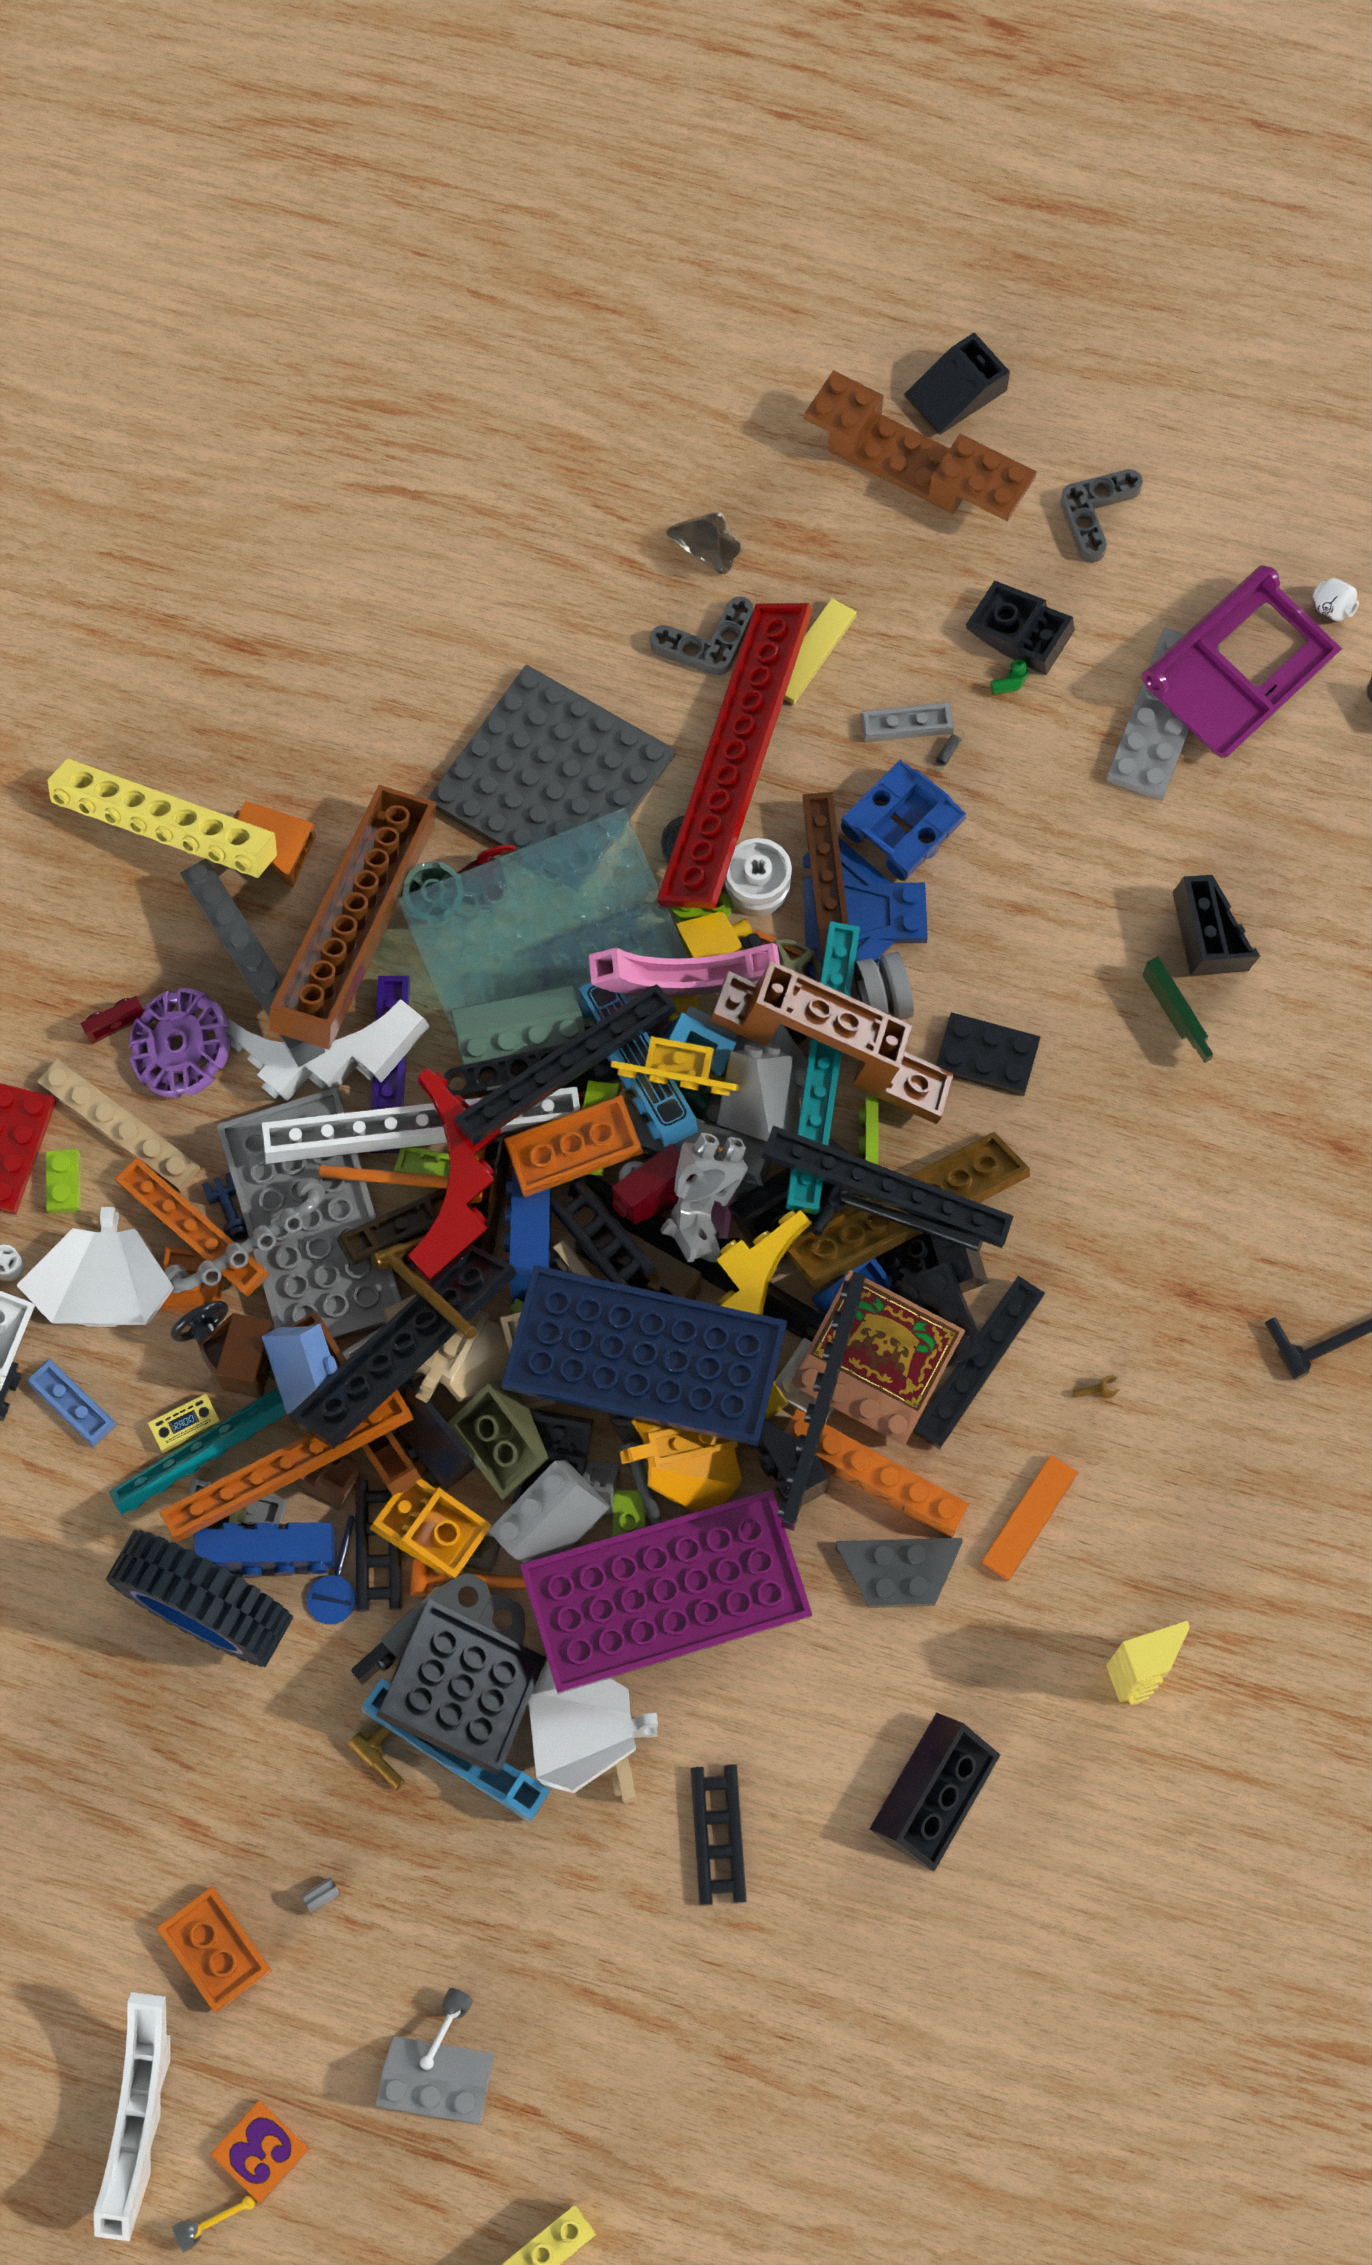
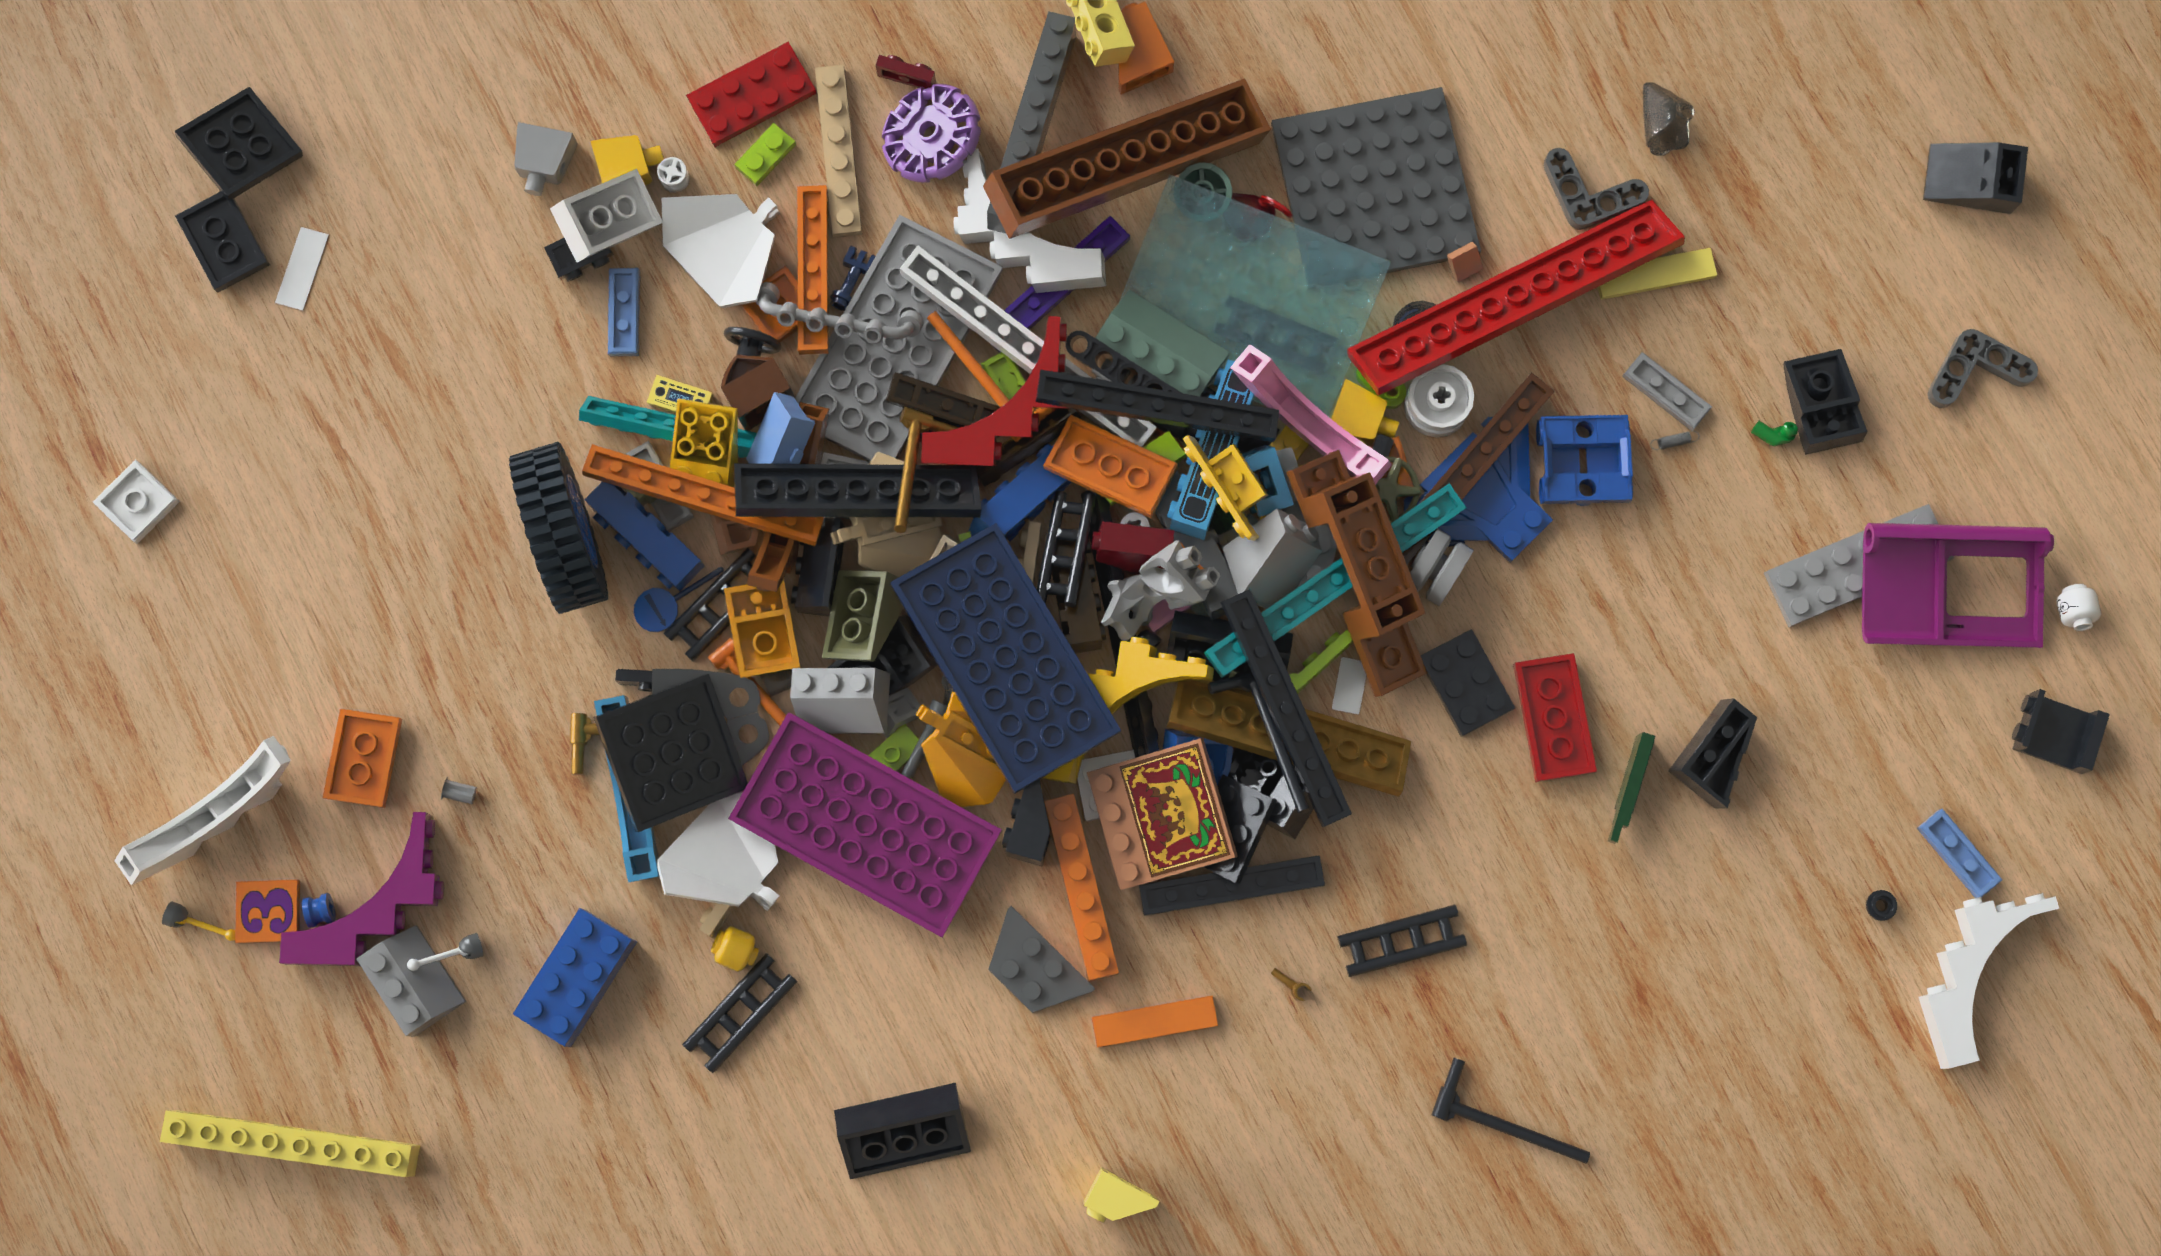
camera: 45 degrees right, 10 degrees up
(241, 1425) = (705, 441): none -> yellow slope
(302, 2104) = (318, 910): none -> blue wheel
(346, 2110) = (408, 885): none -> magenta arch
(564, 1940) = (574, 978): none -> blue brick
(664, 1789) = (734, 948): none -> yellow head
(672, 766) = (1465, 262): none -> nougat tile
(817, 1413) = (1074, 812): black plate -> none
(908, 1138) = (1349, 686): none -> white sticker
(912, 460) = (1882, 200): dark orange bracket -> none
(1074, 1016) = (1554, 717): none -> red plate
(1144, 1297) = (1419, 948): none -> black bar

